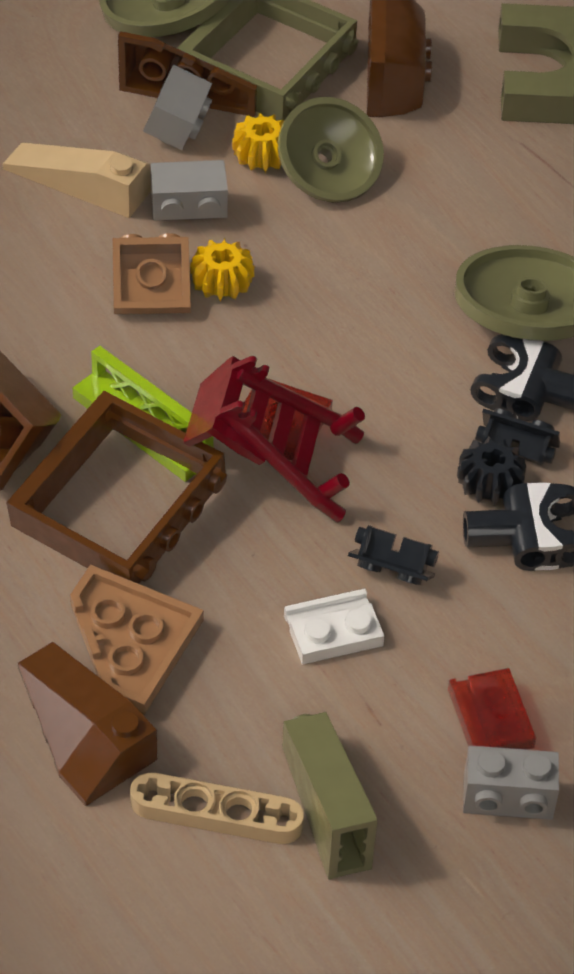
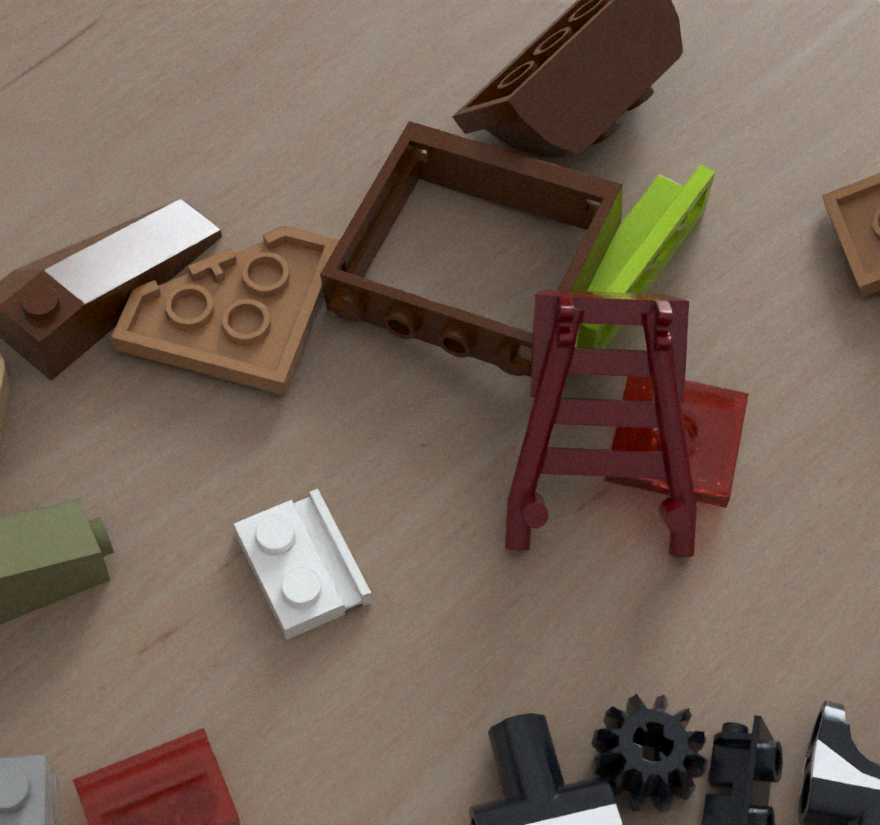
camera: 80 degrees right, 10 degrees up
(378, 552) = (425, 632): black hinge -> none

